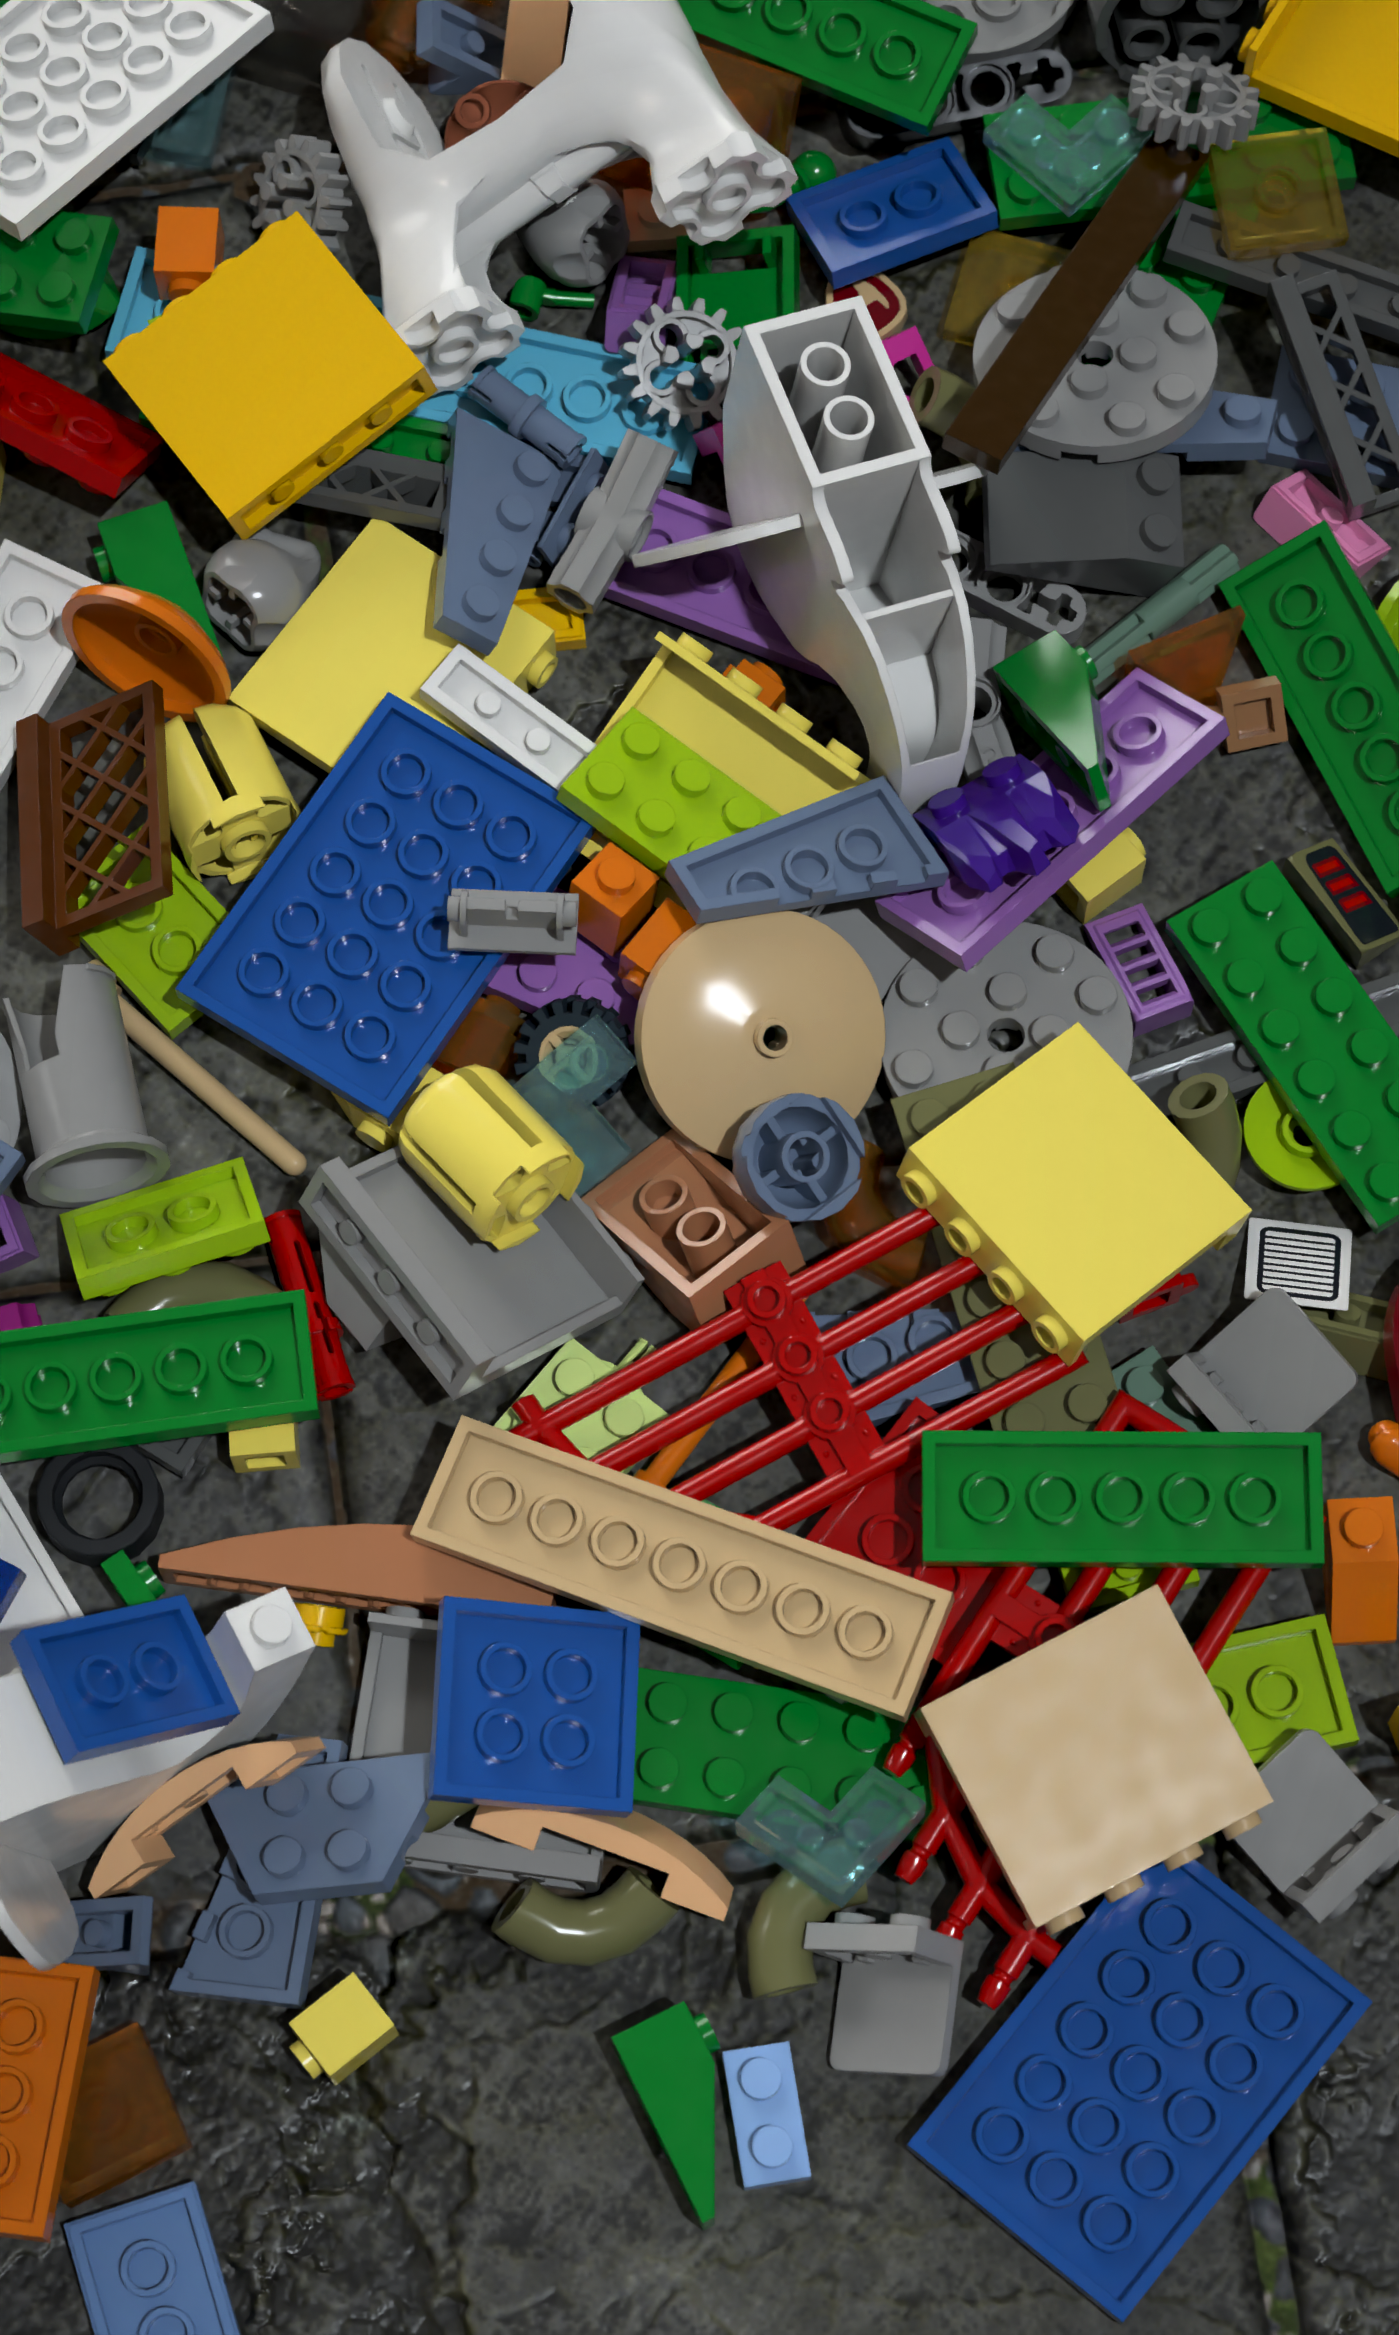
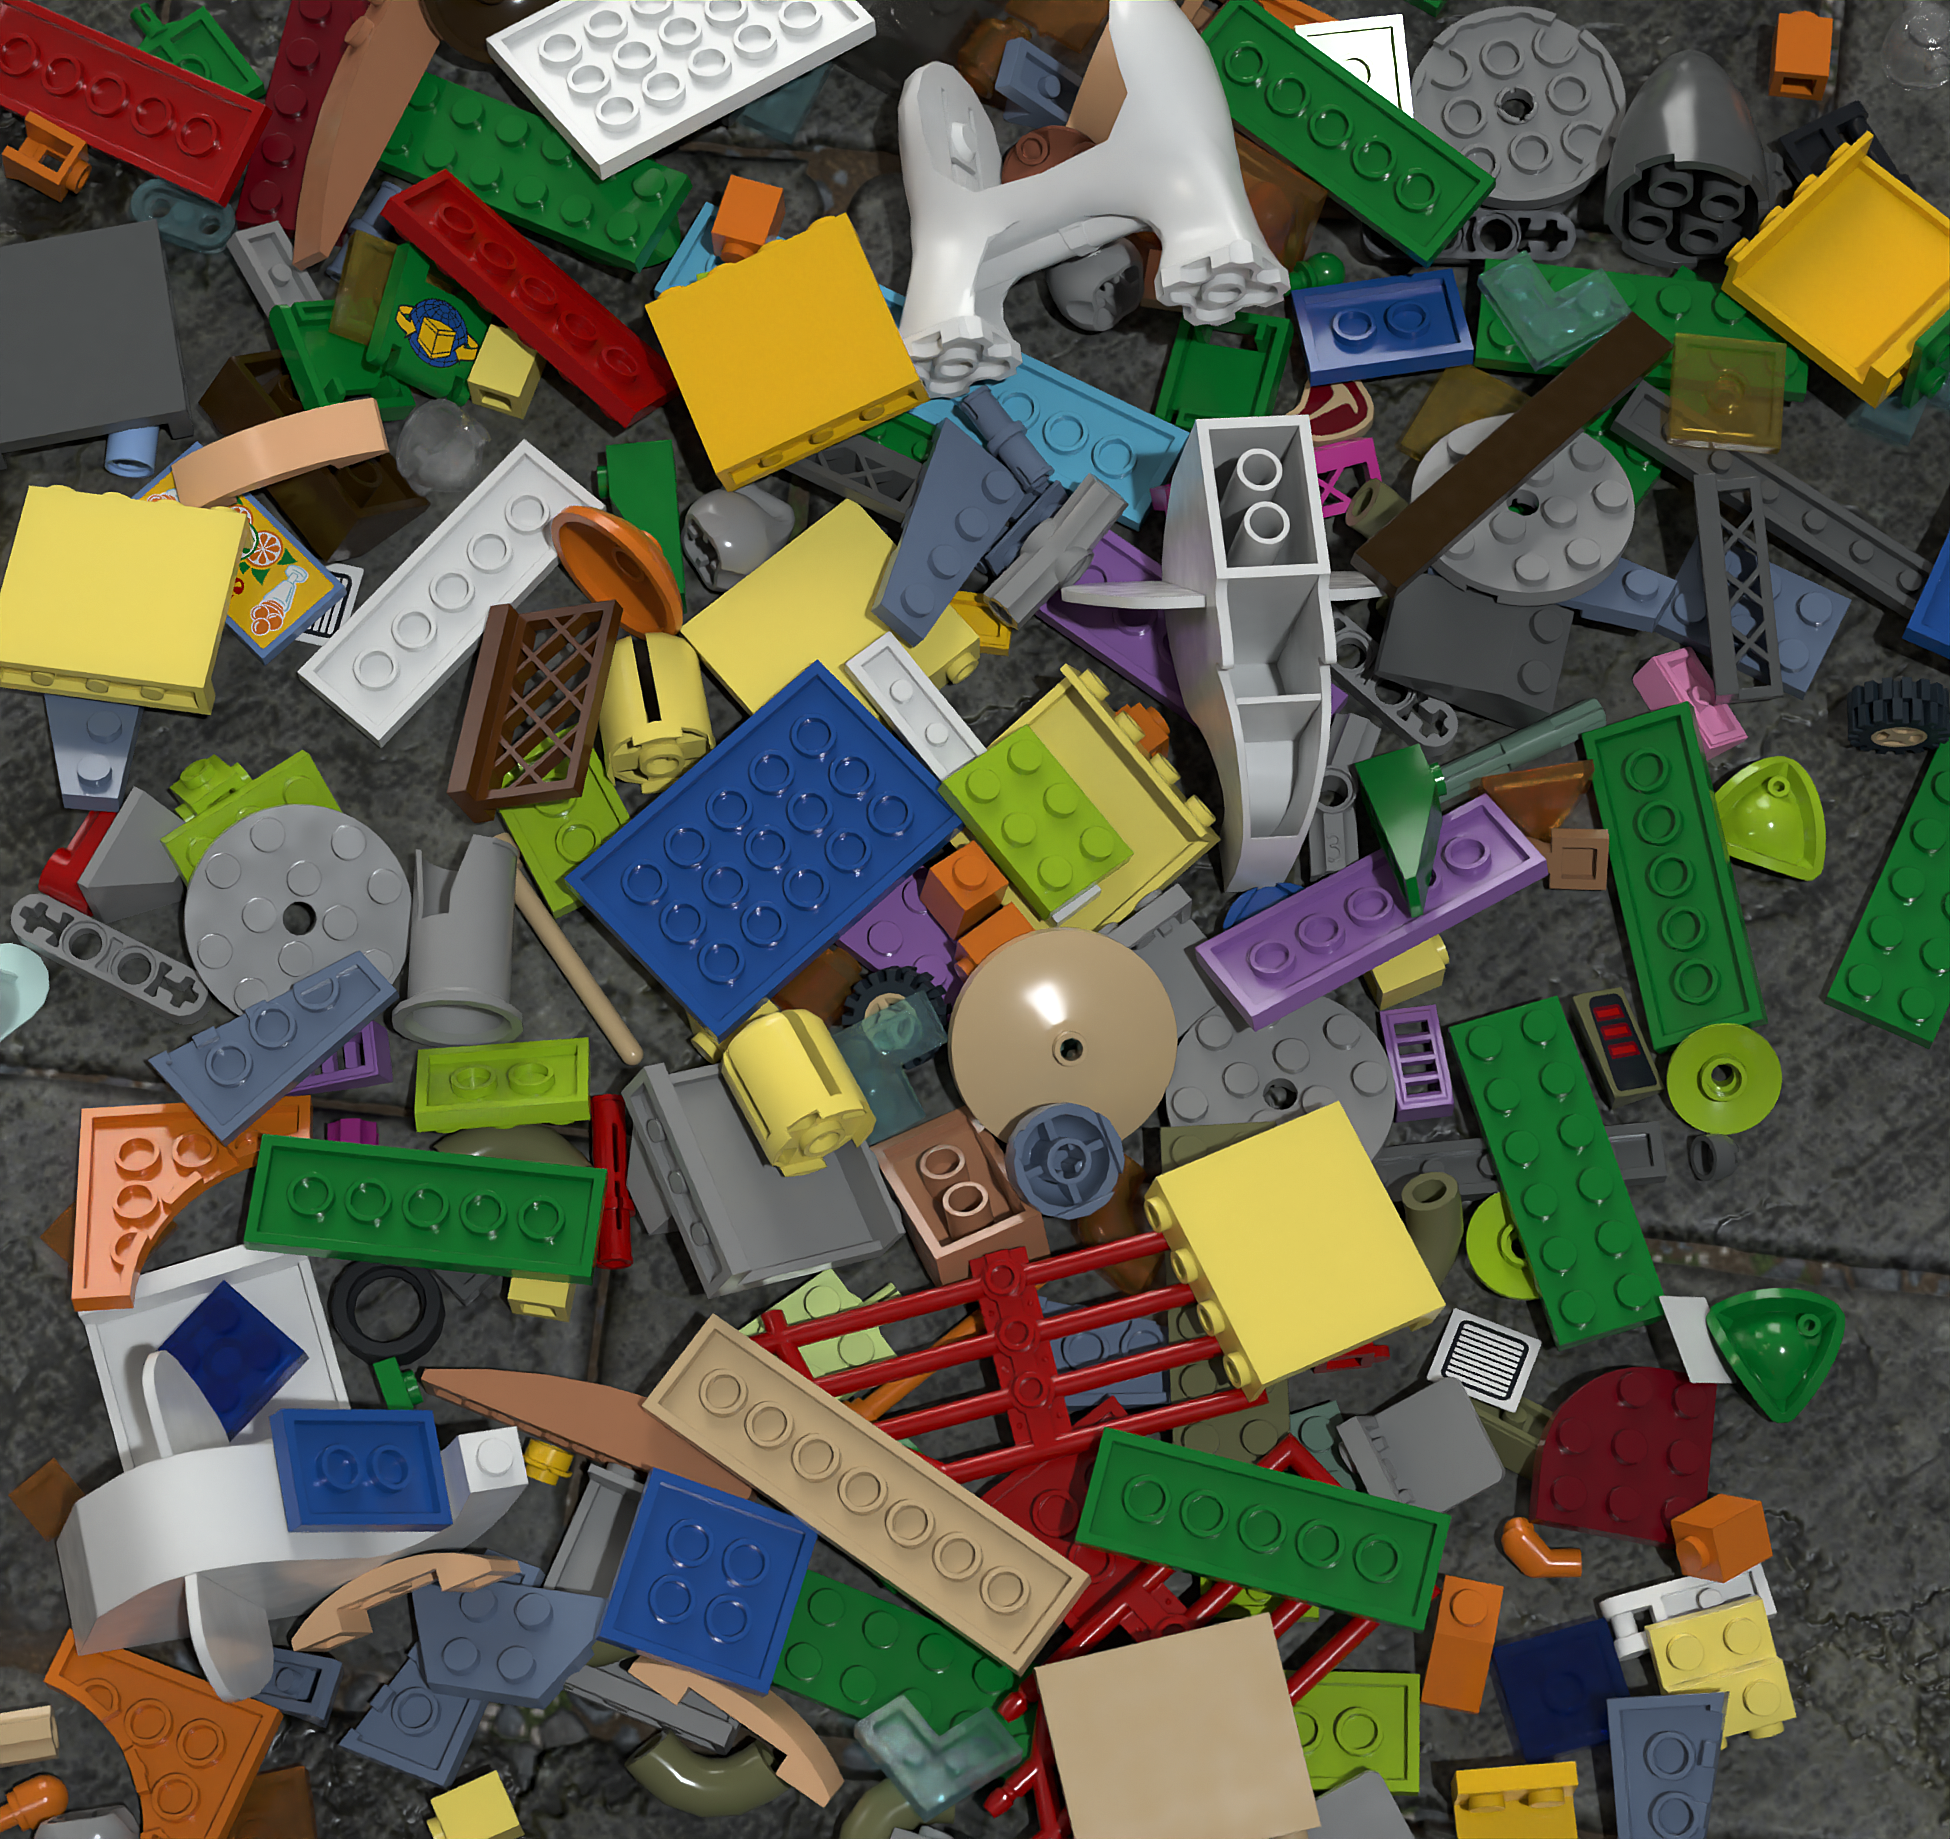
camera: 15 degrees right, 0 degrees up
(305, 180) = (864, 171): light grey gear -> none
(512, 921) = (870, 891): light grey hinge -> none
(531, 293) = (1043, 324): green hand -> none
(635, 288) = (1133, 364): medium lavender slope -> none
(650, 355) = (1128, 409): light grey gear -> none
(814, 856) = (1150, 896): sand blue wing -> none
(998, 823) = (1319, 906): dark purple plate -> none
(1162, 94) = (1697, 307): light grey gear -> none

